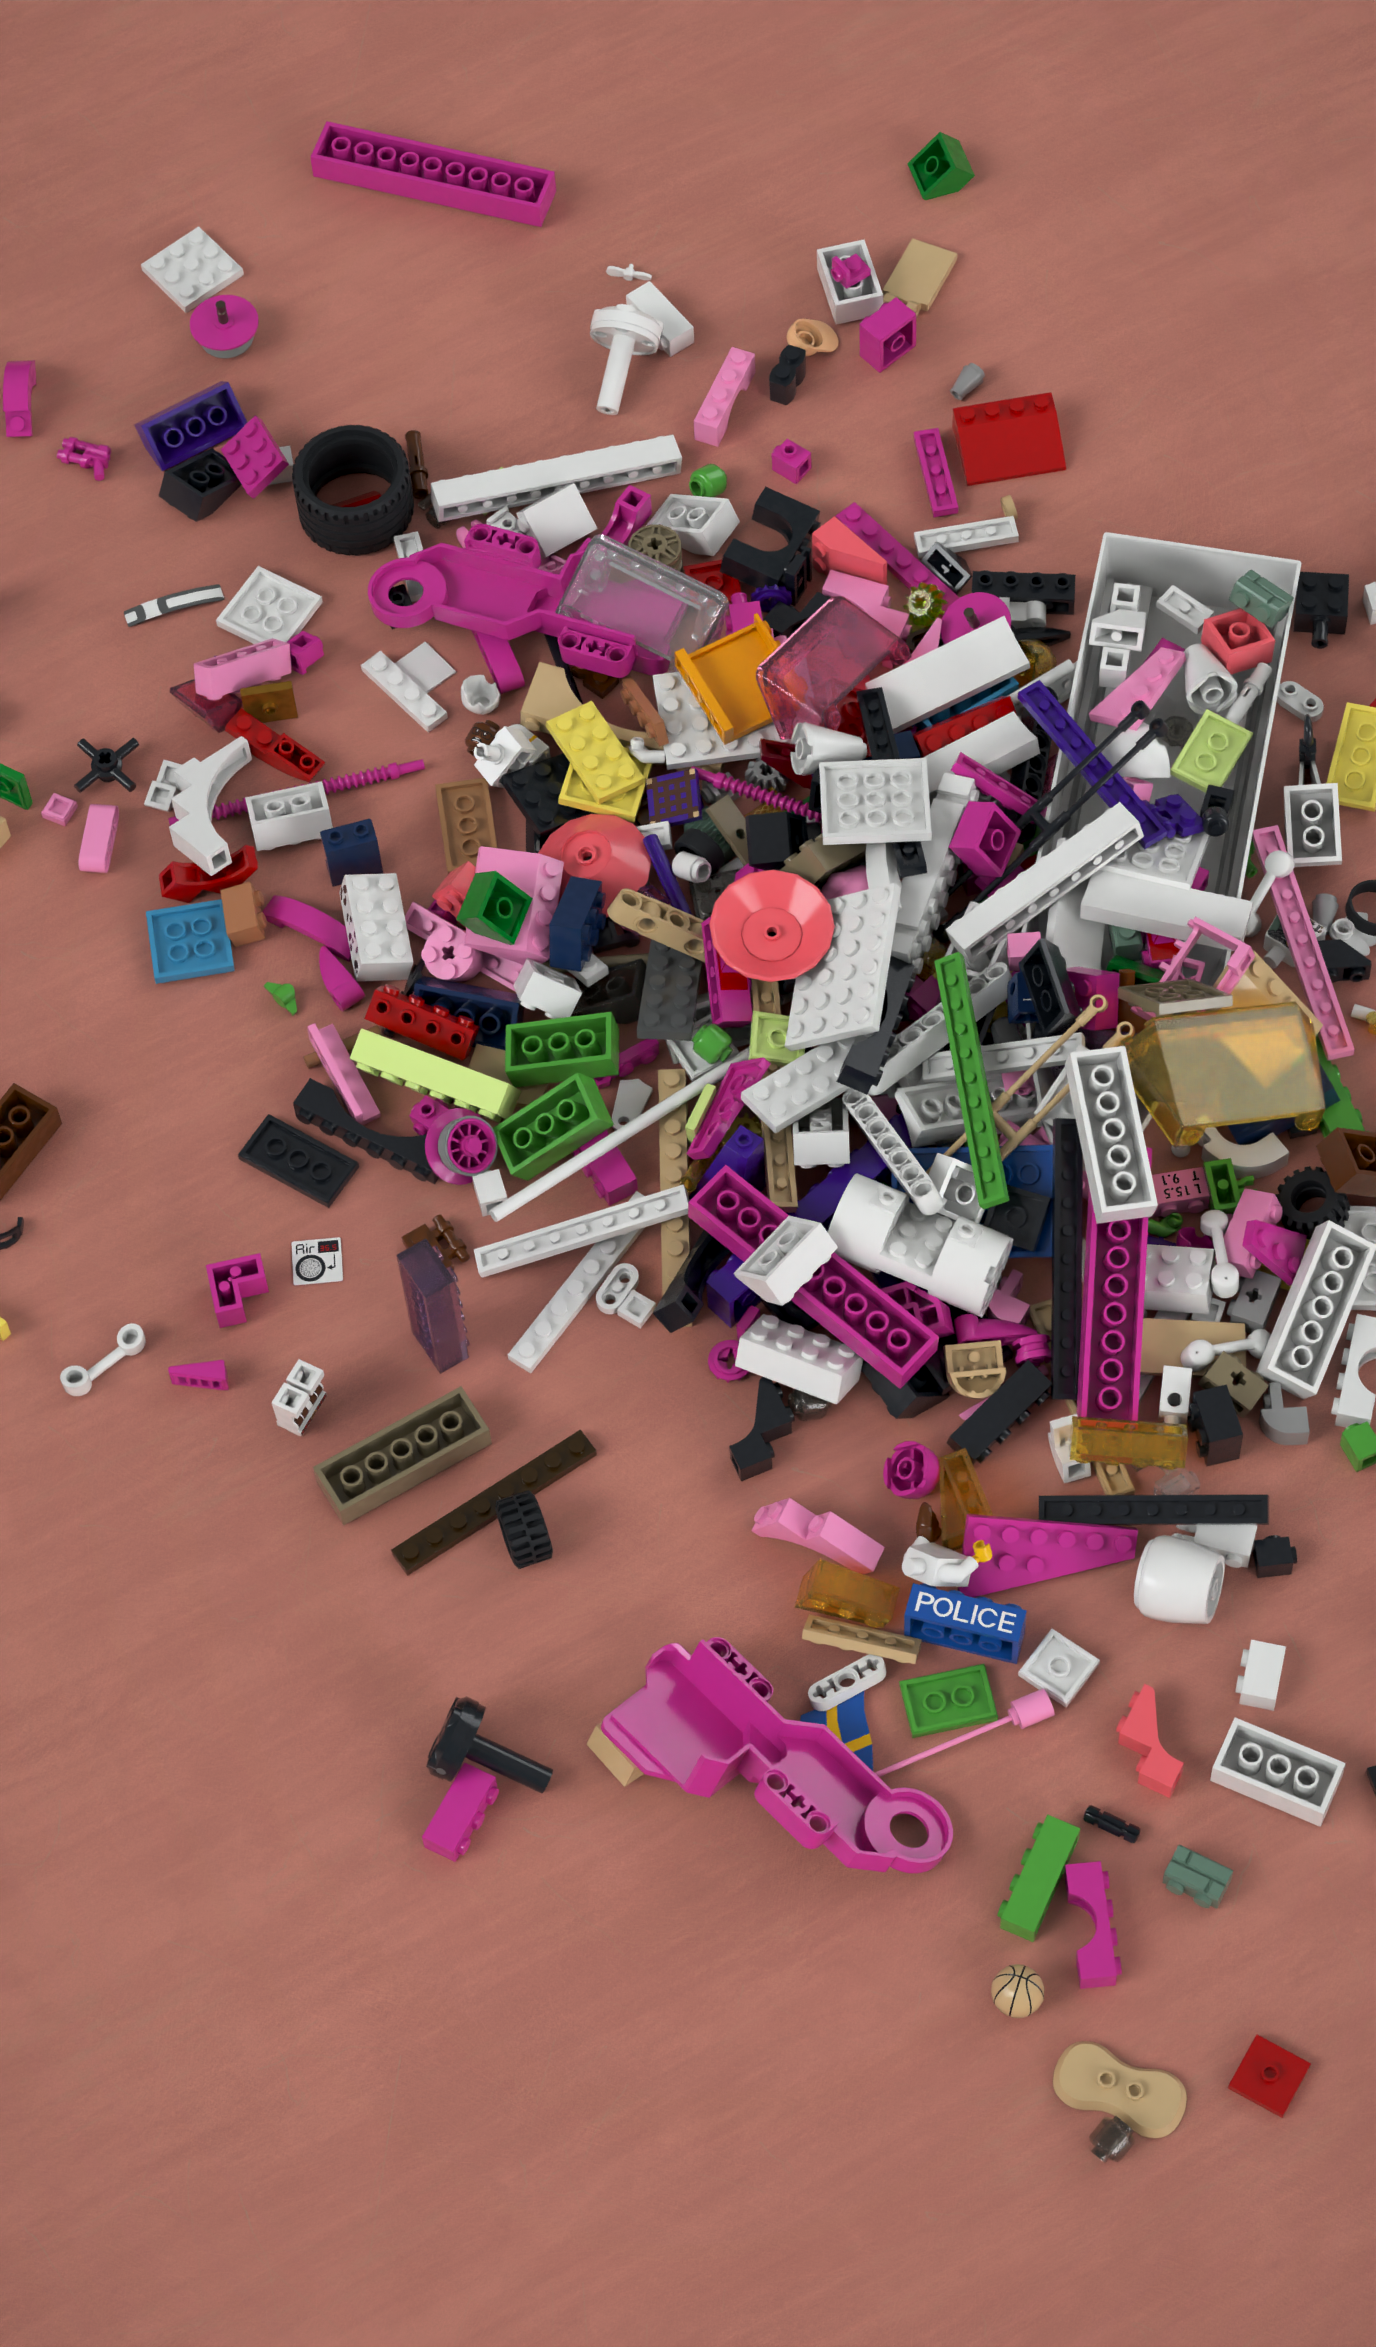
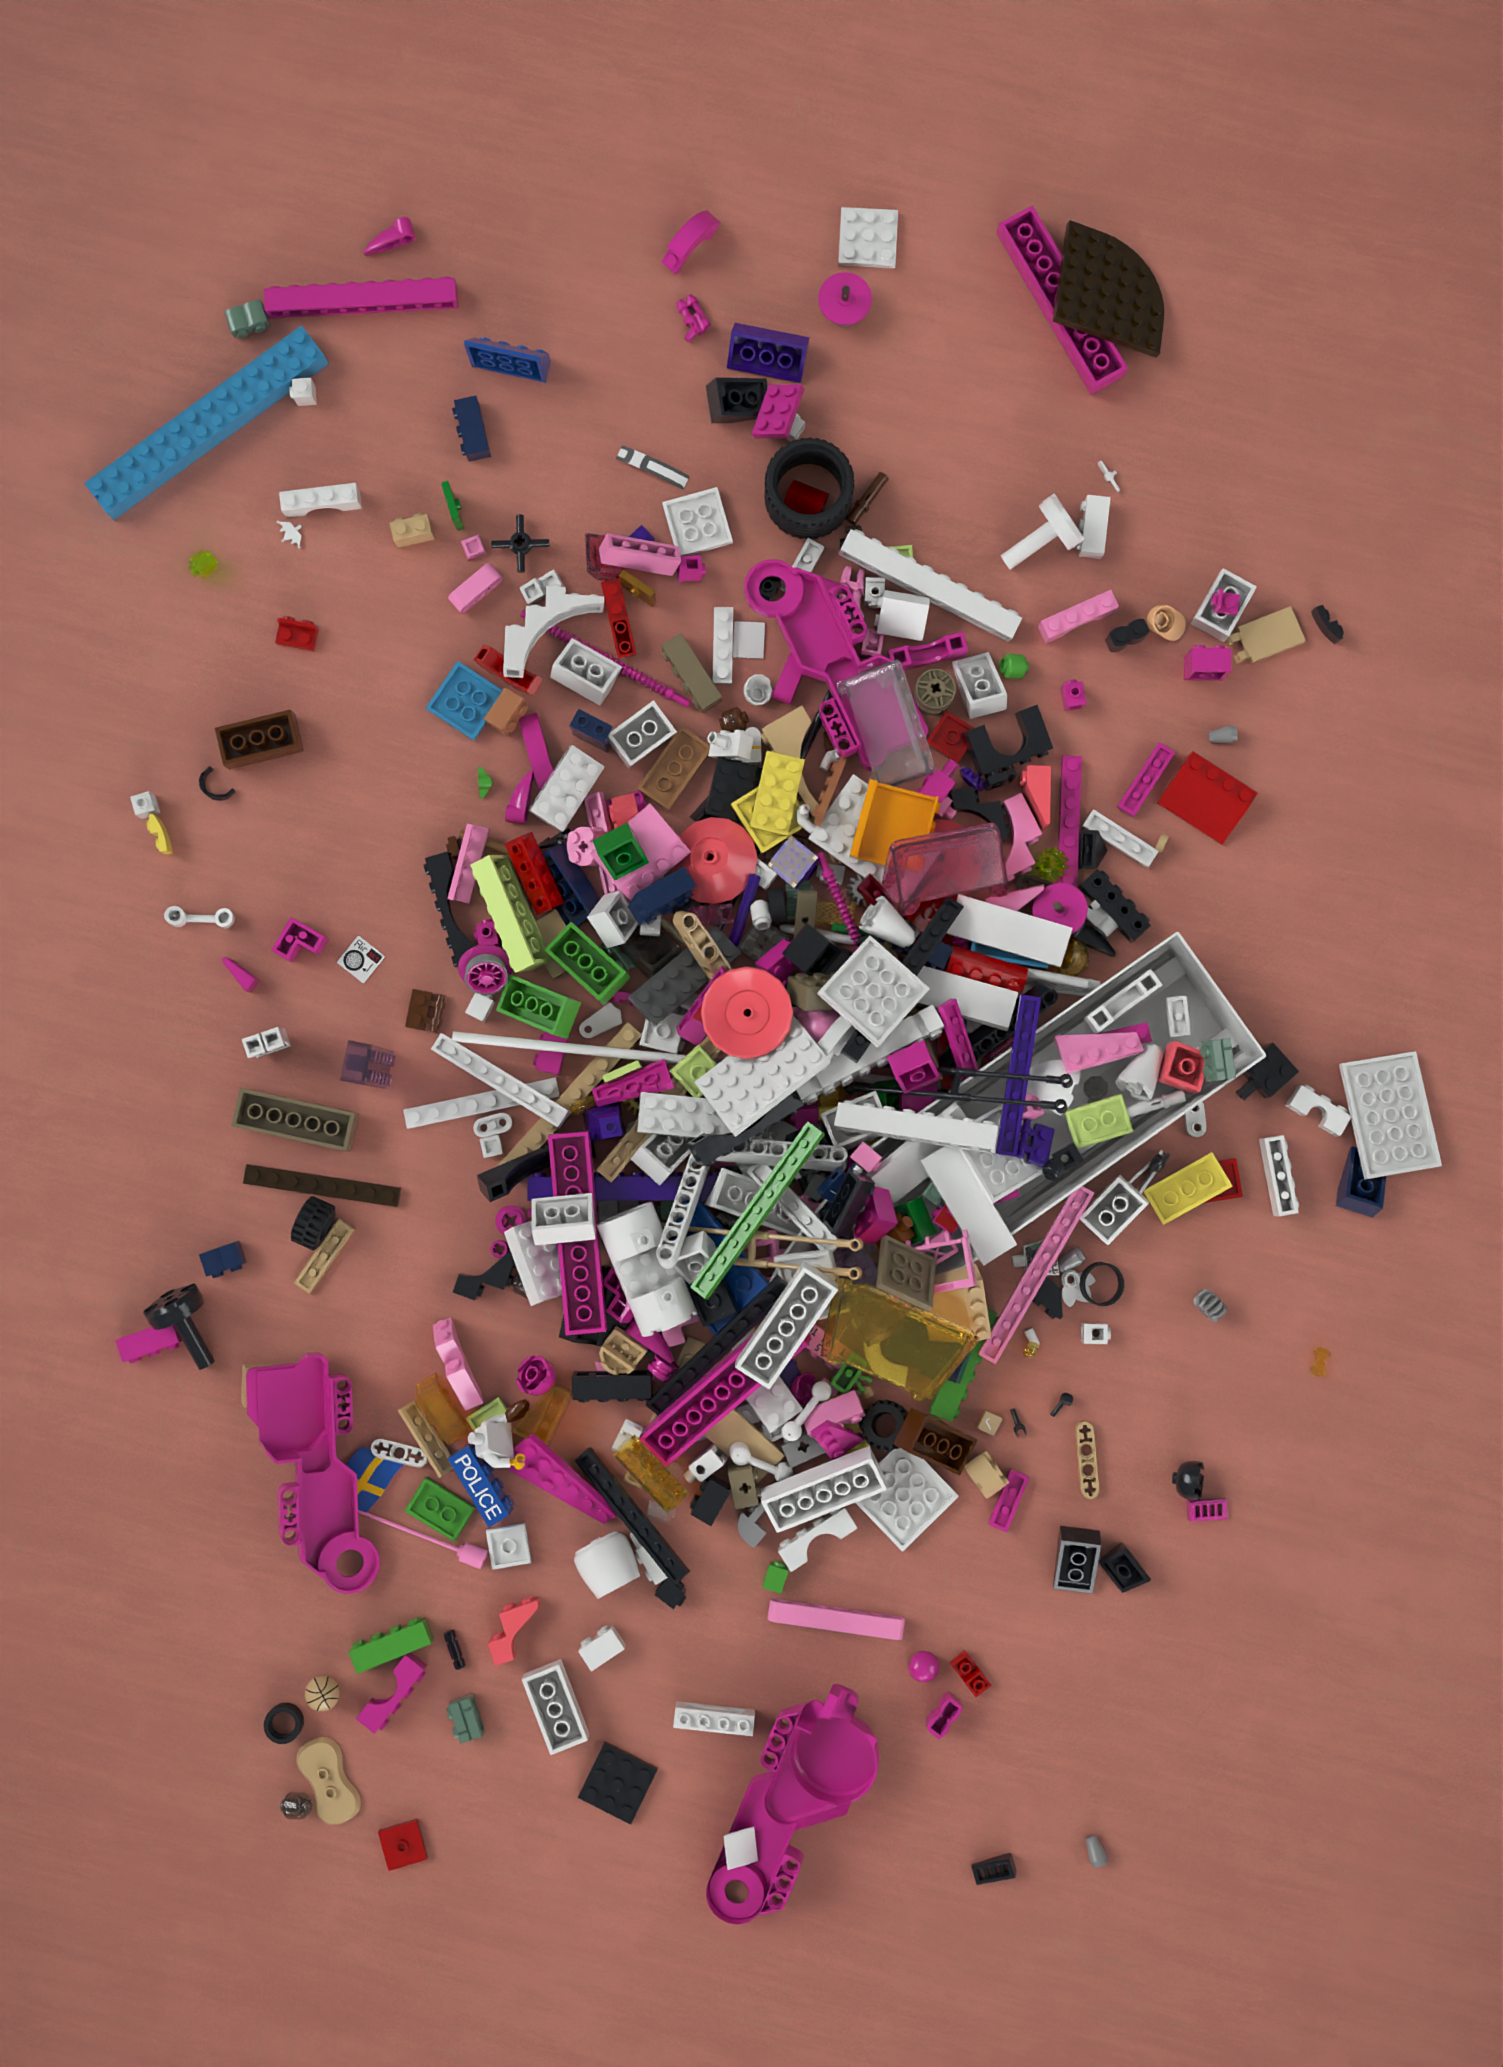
camera: 40 degrees right, 25 degrees up
(298, 1160) = (403, 890): black tile -> none
(311, 1070) = (453, 847): none -> reddish brown plate
(398, 734) = (691, 672): none -> dark tan brick
(404, 818) = (641, 734): none -> white brick
(459, 1661) = (222, 1259): none -> dark blue brick
(470, 131) = (1108, 291): none -> dark brown plate
(567, 1567) = (324, 1256): none -> tan tile
(613, 697) = (828, 759): none -> white arm
(712, 1043) = (664, 1039): bright green head -> none
(742, 1390) = (501, 1243): none -> dark pink bush
(893, 1572) = (491, 1409): none -> yellowish green tile
(940, 167) = (1355, 572): green slope -> none
(968, 227) = (1331, 630): none -> black slope
(1008, 2044) = (275, 1736): none -> black tyre
(1119, 630) = (1122, 1003): white slope -> none
(1165, 1226) = (805, 1360): bright green arm -> none
(1278, 865) = (1065, 1220): white piece -> none

